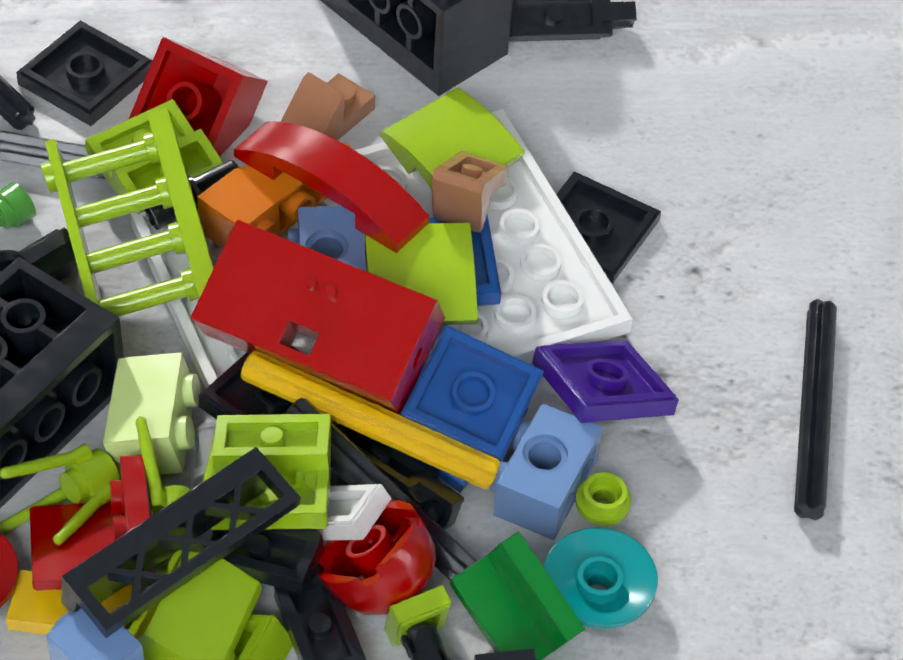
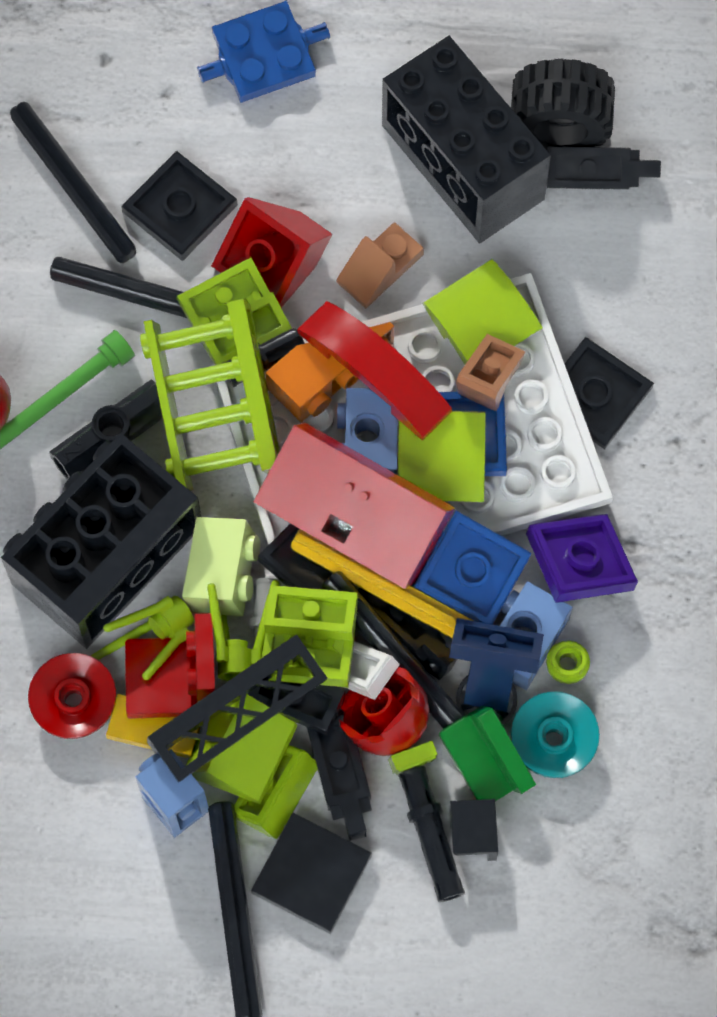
camera: 10 degrees right, 20 degrees up
(511, 490) = (494, 657): none -> dark blue piece

